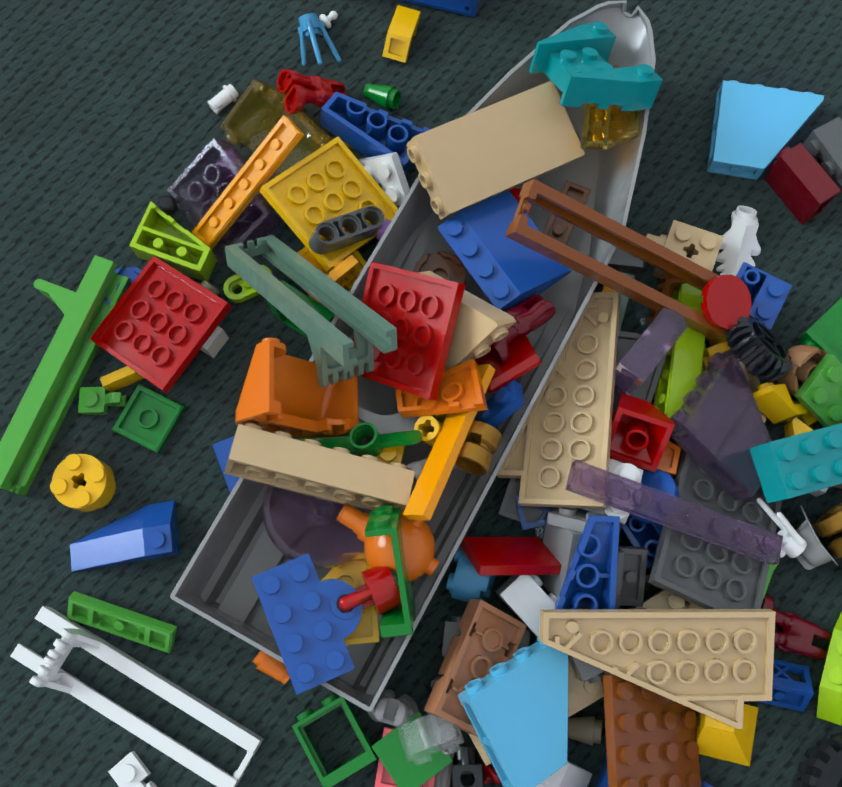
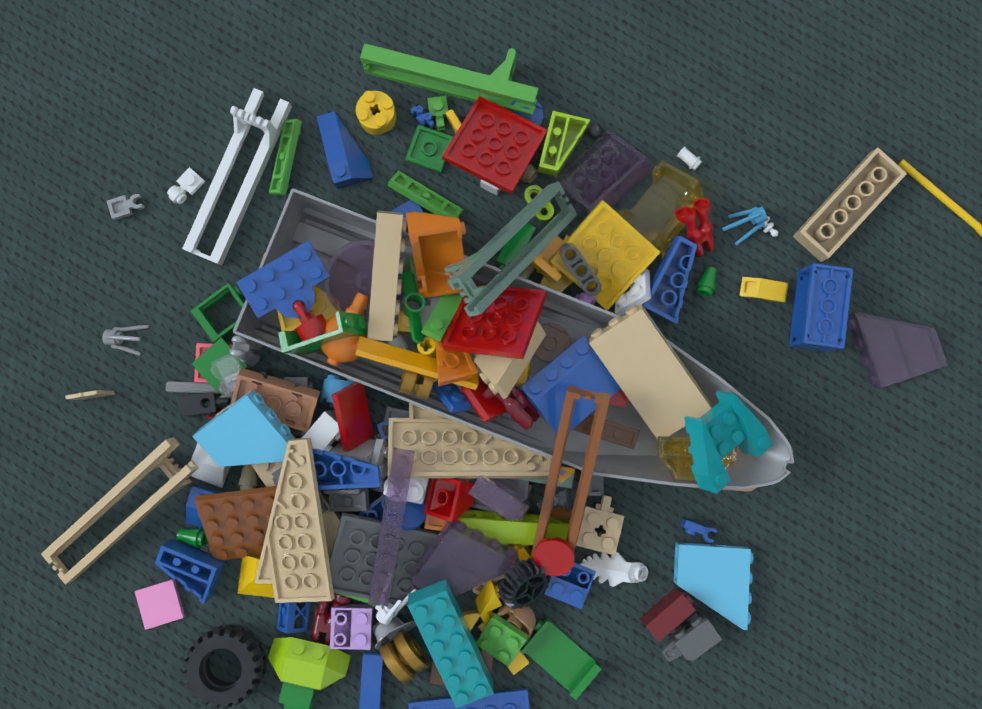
camera: 80 degrees right, 10 degrees up
(104, 422) = (421, 117): none -> blue piece
(208, 436) = (423, 196): none -> bright green plate
(248, 182) = (611, 190): light orange tile -> none
(388, 402) = (442, 316): none -> bright green plate
(692, 145) = (694, 528): none -> blue plate
(806, 595) = (351, 627): none -> lavender slope

